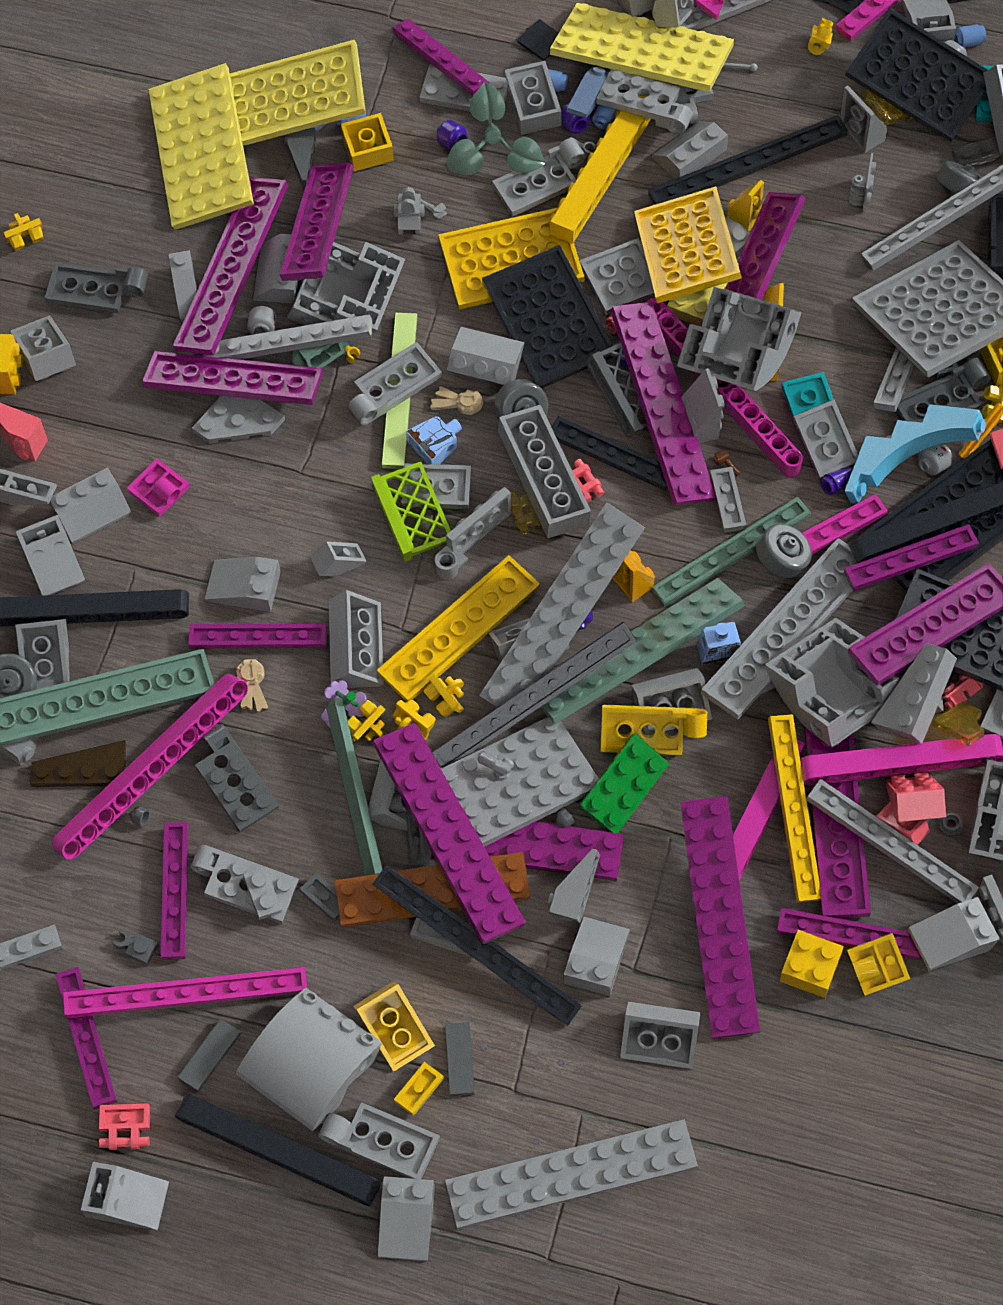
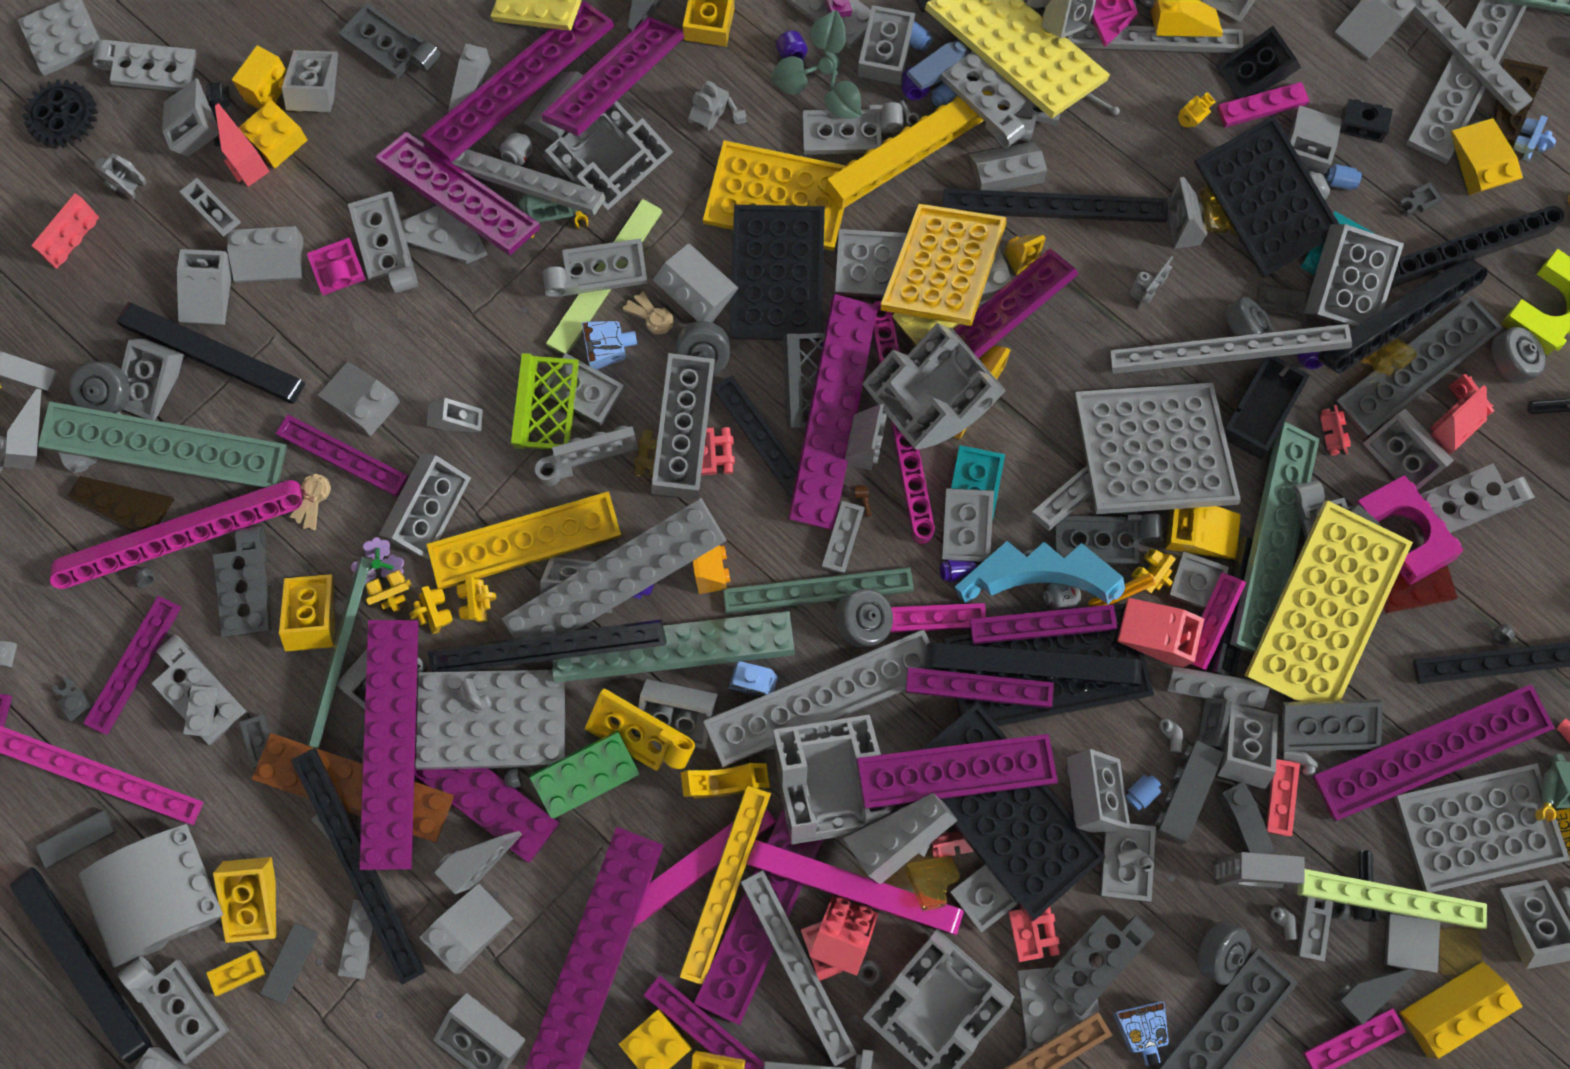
camera: 25 degrees right, 10 degrees up
(40, 400) = (273, 134): none -> yellow brick
(220, 463) = (402, 272): none -> light grey hinge
(306, 774) = (307, 613): none -> yellow slope
(508, 1012) = (357, 943): none -> light grey plate
(745, 733) = (724, 781): none -> yellow arch
(933, 485) = (1043, 624): none -> magenta plate

